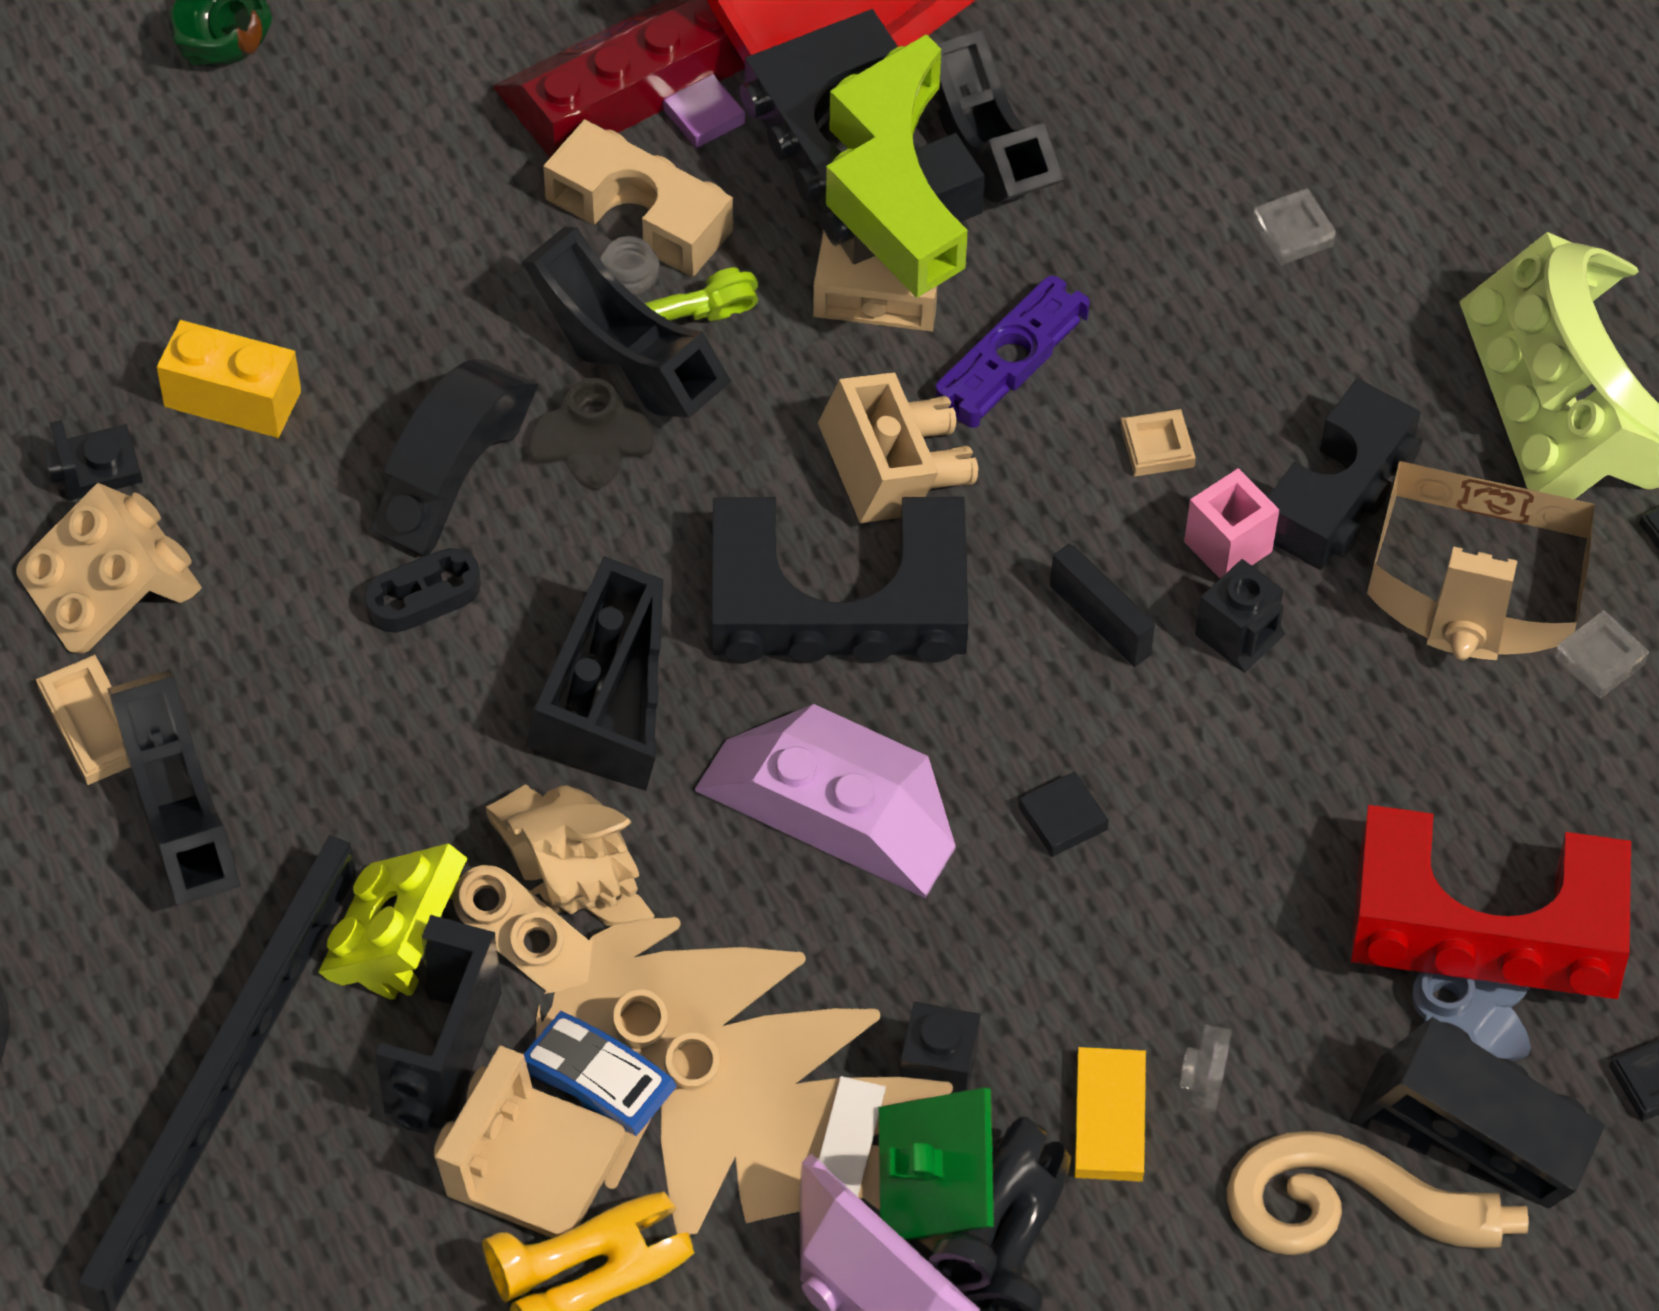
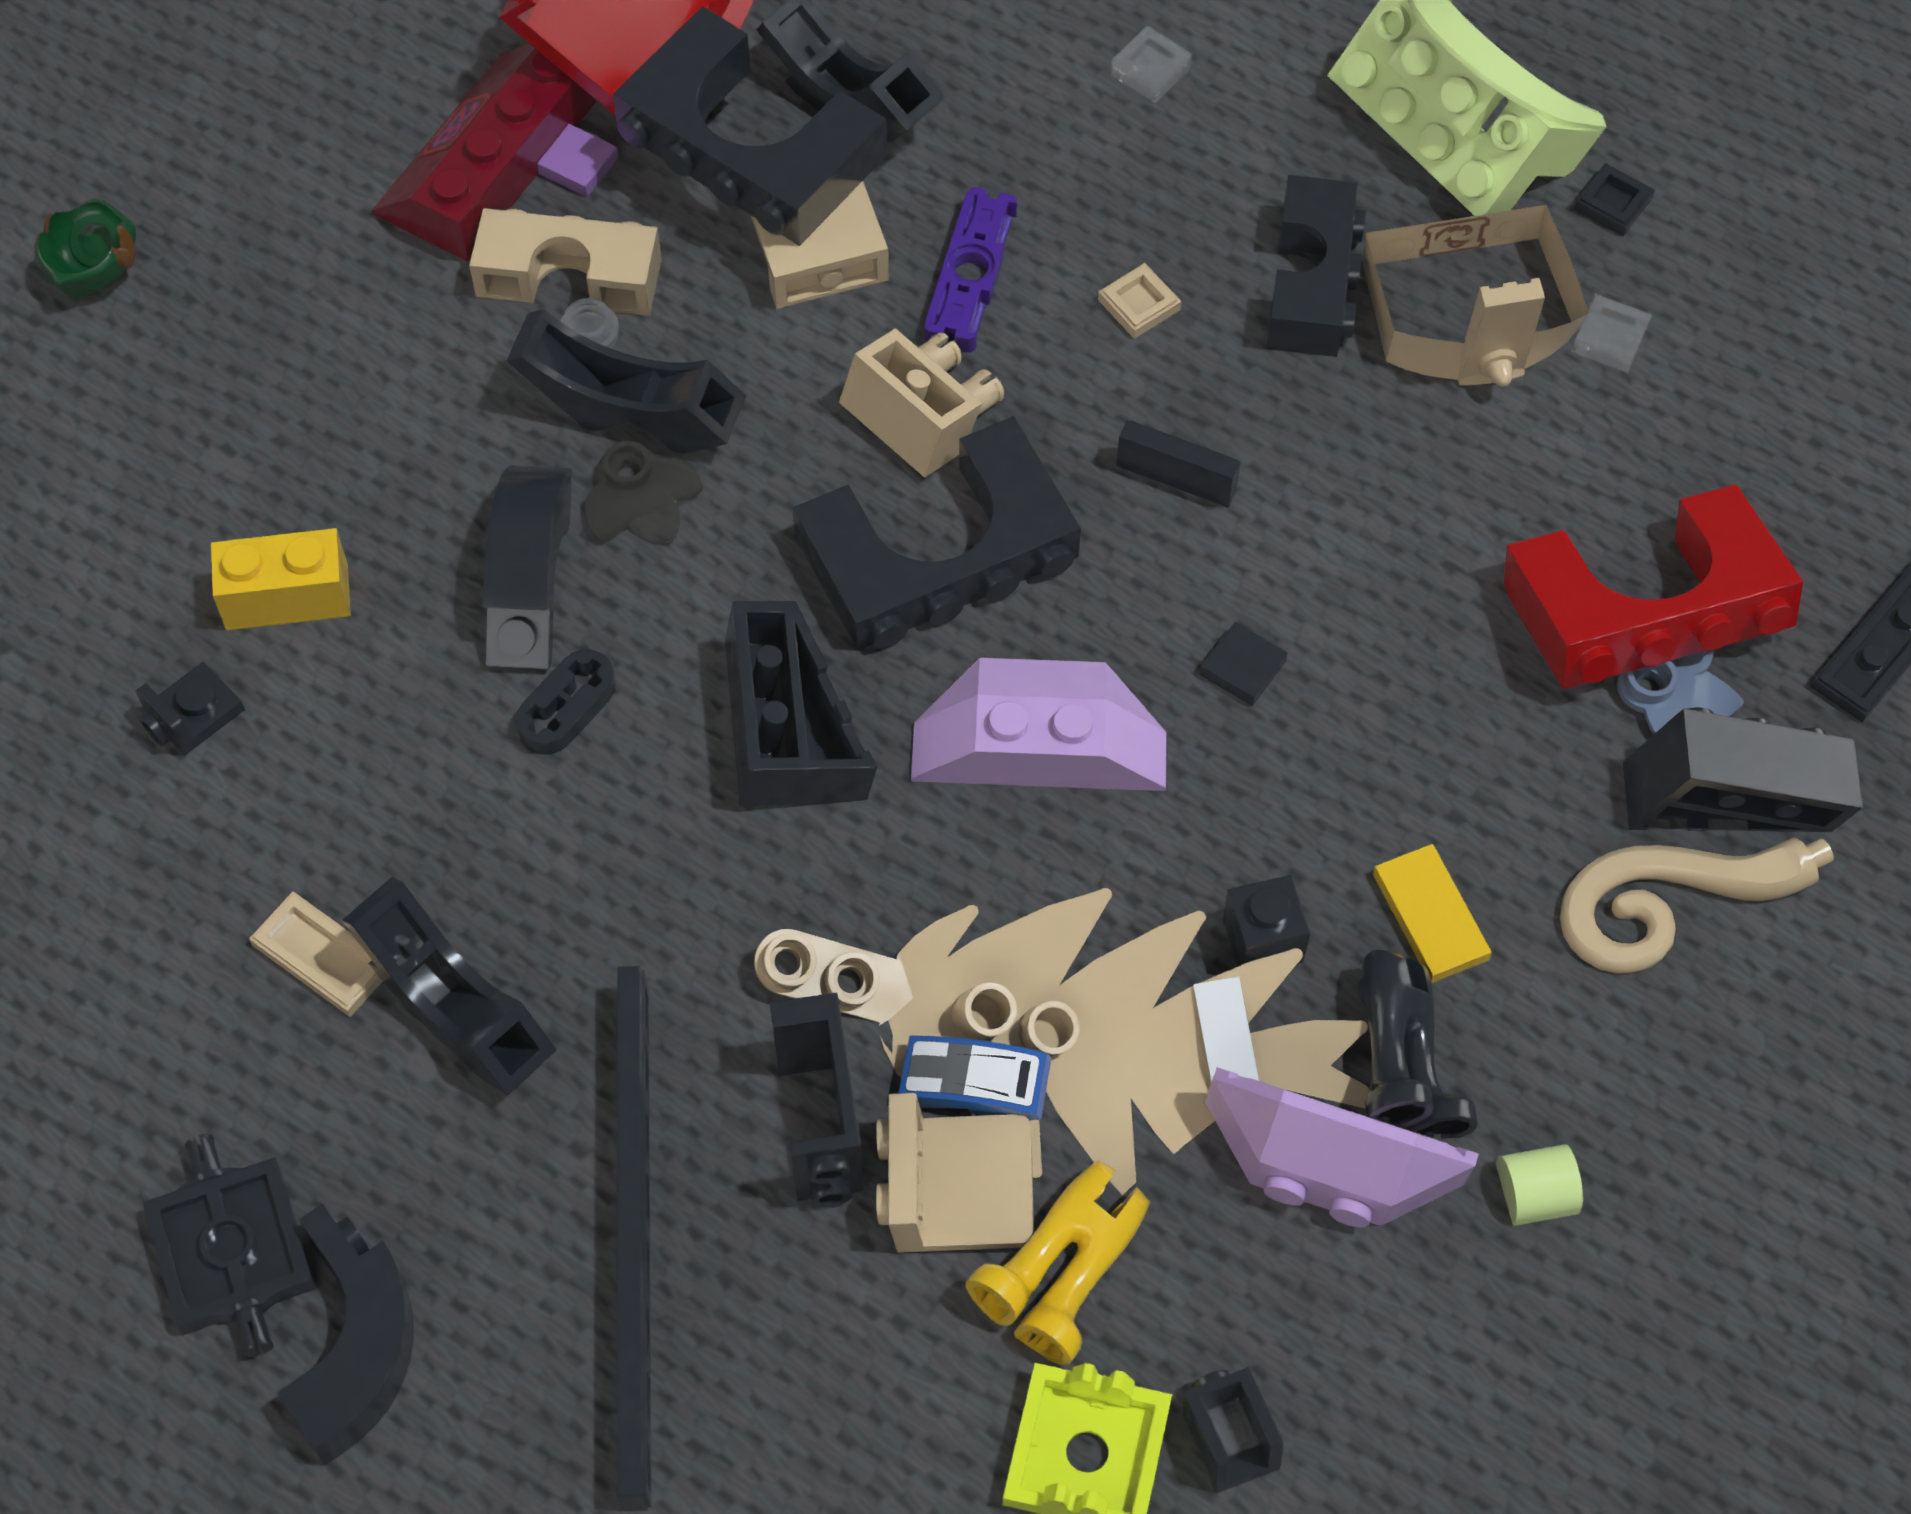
camera: 25 degrees left, 5 degrees up
(102, 564) = (255, 806): tan bracket -> none
(387, 944) = (736, 1036): neon yellow piece -> none
(574, 849) = (843, 878): tan piece -> none
(725, 294) = (691, 317): lime plate -> none
(878, 179) = (802, 154): lime arch -> none
(937, 1164) = (1329, 1027): green piece -> none
(1205, 1070) = (1497, 838): clear plate -> none
(1231, 523) = (1252, 347): bright pink brick -> none
(1241, 615) = (1302, 423): black window -> none

